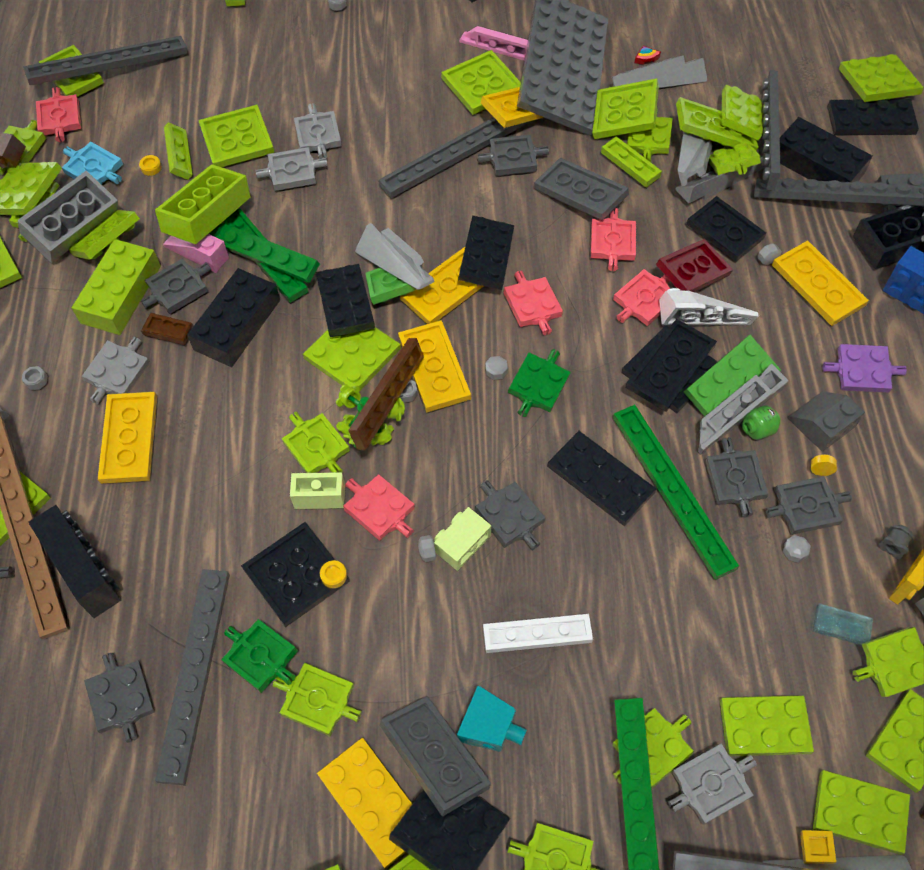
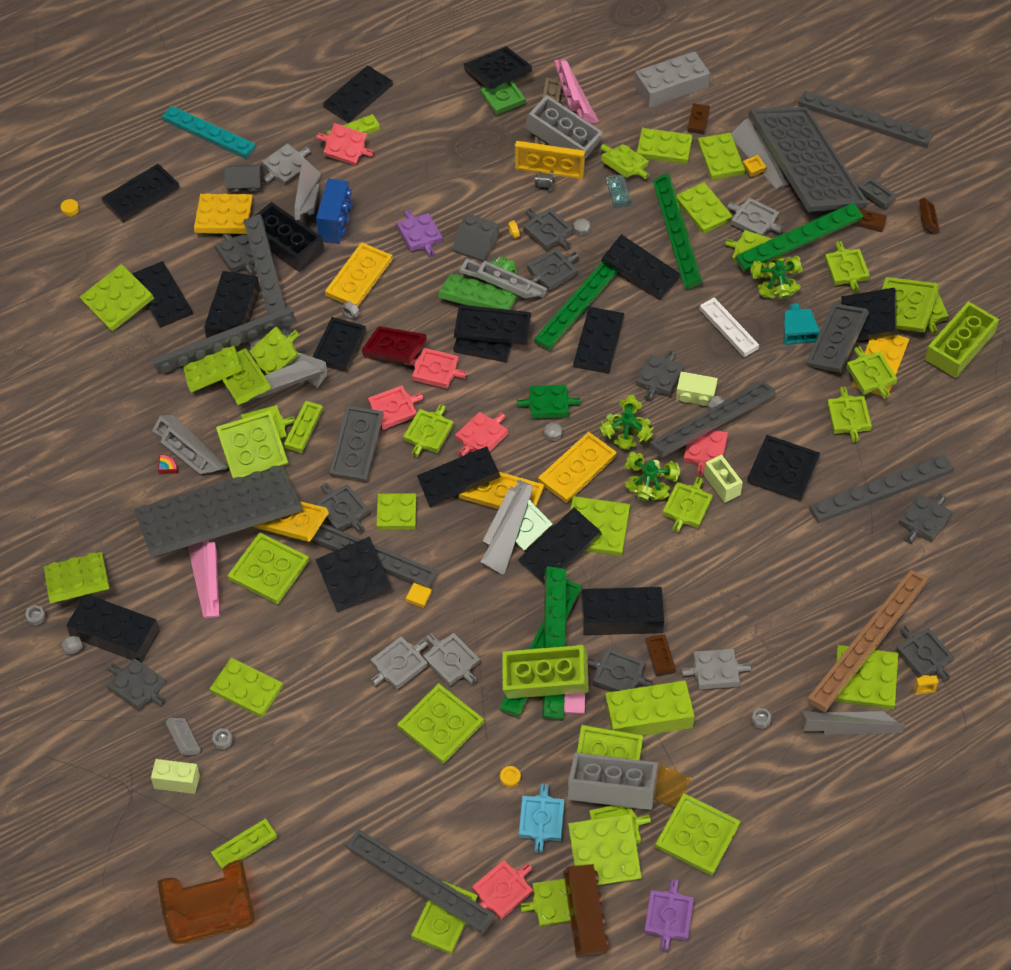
camera: 120 degrees left, 5 degrees down
(41, 274) = (670, 786): none -> clear yellow piece
(76, 560) = (869, 583): black brick -> none
(127, 437) = (762, 623): yellow plate -> none
(178, 151) = (485, 758): lime plate -> none
(259, 655) = (847, 455): green plate -> none
(333, 574) = (771, 440): yellow tile -> none
(350, 760) = (871, 372): none -> lime plate
(374, 32) = (246, 687): none -> lime plate
(375, 173) = (418, 595): none -> yellow tile
(386, 394) = (641, 456): reddish brown plate -> none
(403, 528) = (712, 419): none -> dark grey plate
(409, 392) = (608, 474): light grey tile -> none
(430, 132) = (353, 574): none -> black plate
(446, 426) = (627, 419): none -> lime plant
(483, 196) = (396, 511): none -> lime plate
(564, 256) = (428, 430): none -> lime plate
(573, 722) = (776, 272): none -> lime plant
(689, 576) = (640, 267): none -> black plate
(701, 310) = (438, 324): white wedge -> none
(737, 661) = (677, 231): none -> green plate

